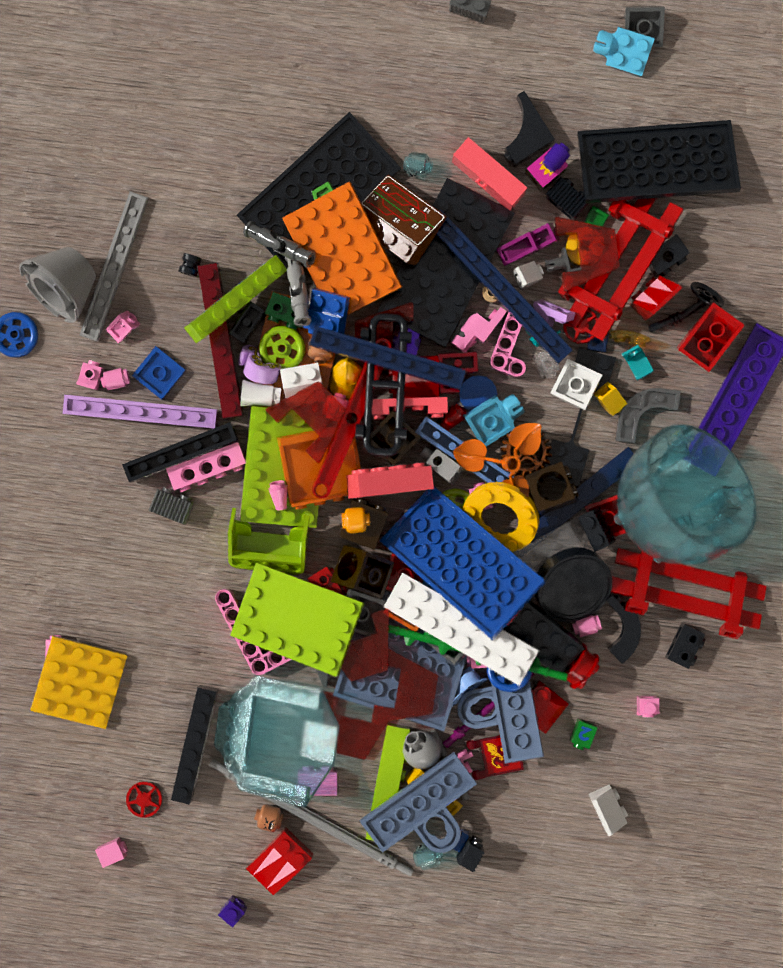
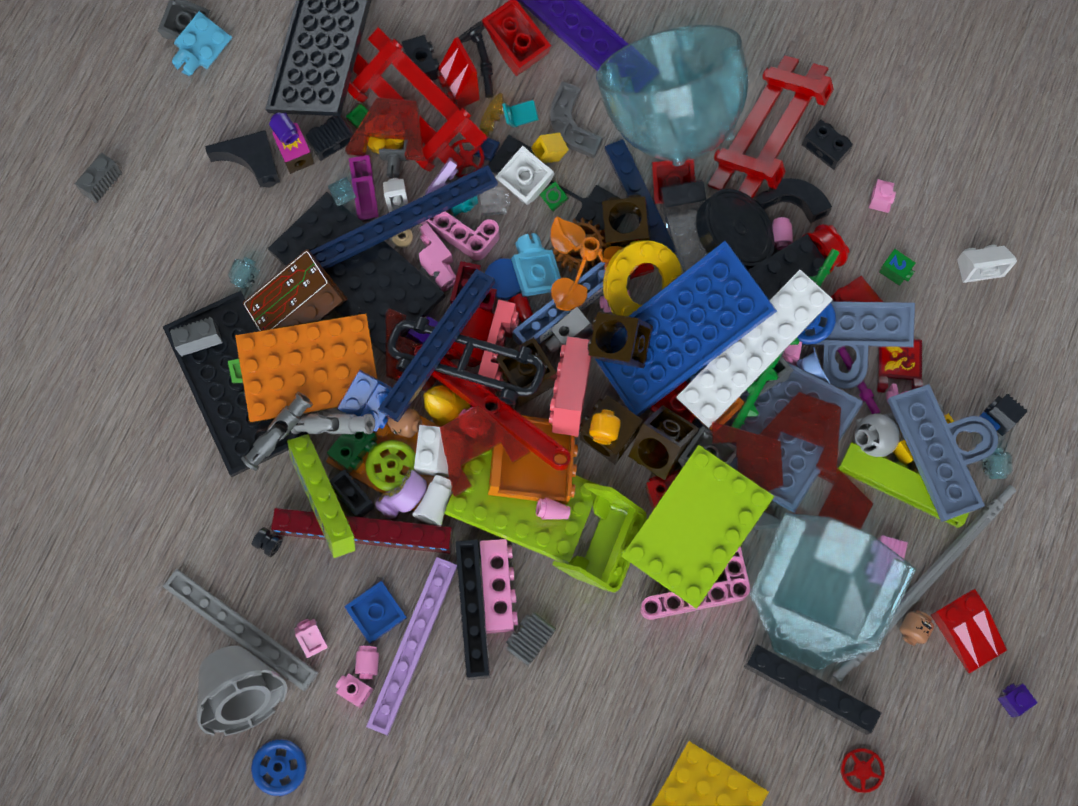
camera: 75 degrees left, 15 degrees down
(345, 145) = (196, 336): none -> dark grey brick
(446, 525) = (637, 344): none -> dark brown brick
(489, 174) = (278, 202): coral brick -> none
(515, 227) = (342, 191): none -> clear light blue bracket
(567, 415) = (554, 196): none -> green tile

